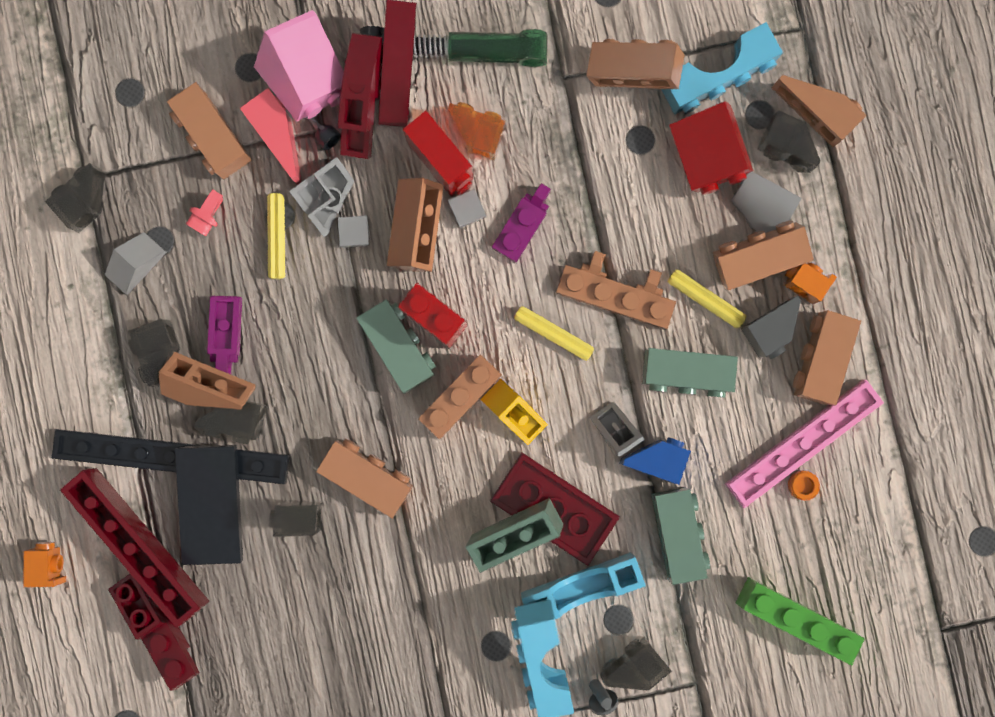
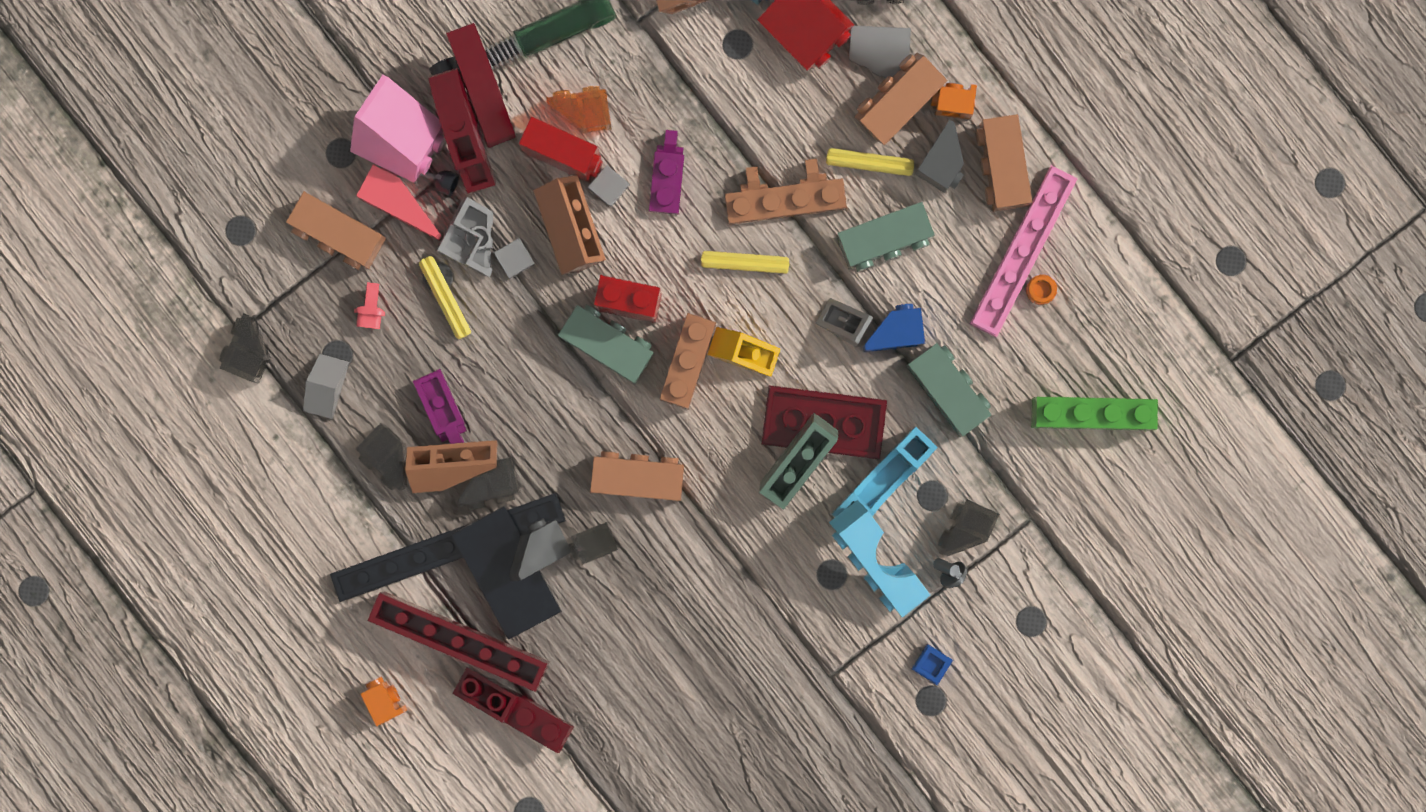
camera: 25 degrees left, 0 degrees up
(243, 500) = (538, 549): none -> dark grey slope

